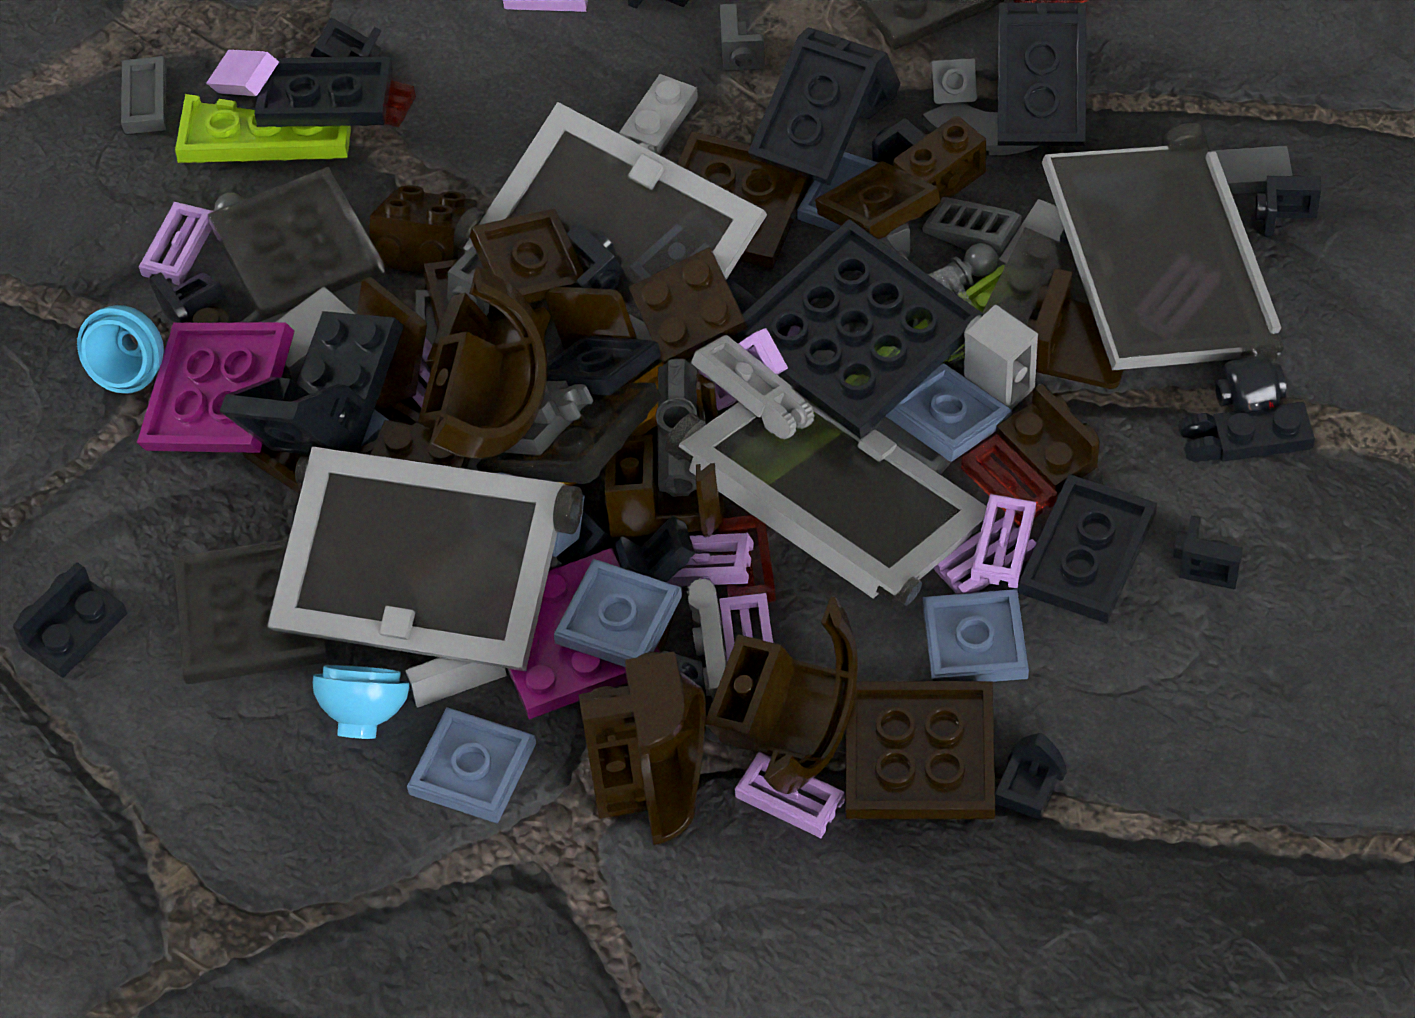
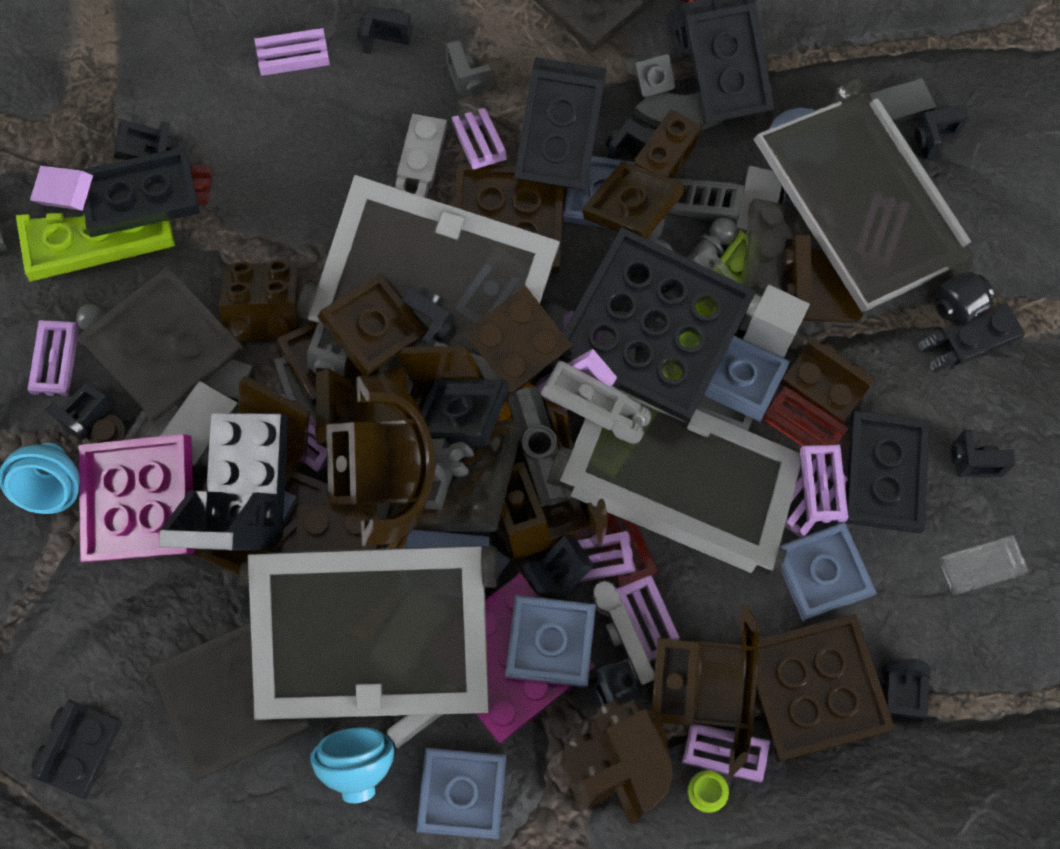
camera: 25 degrees left, 15 degrees up
(725, 98) = (474, 123): none -> lavender tile
(753, 826) = (708, 791): none -> lime plate
(1172, 672) = (983, 565): none -> clear tile

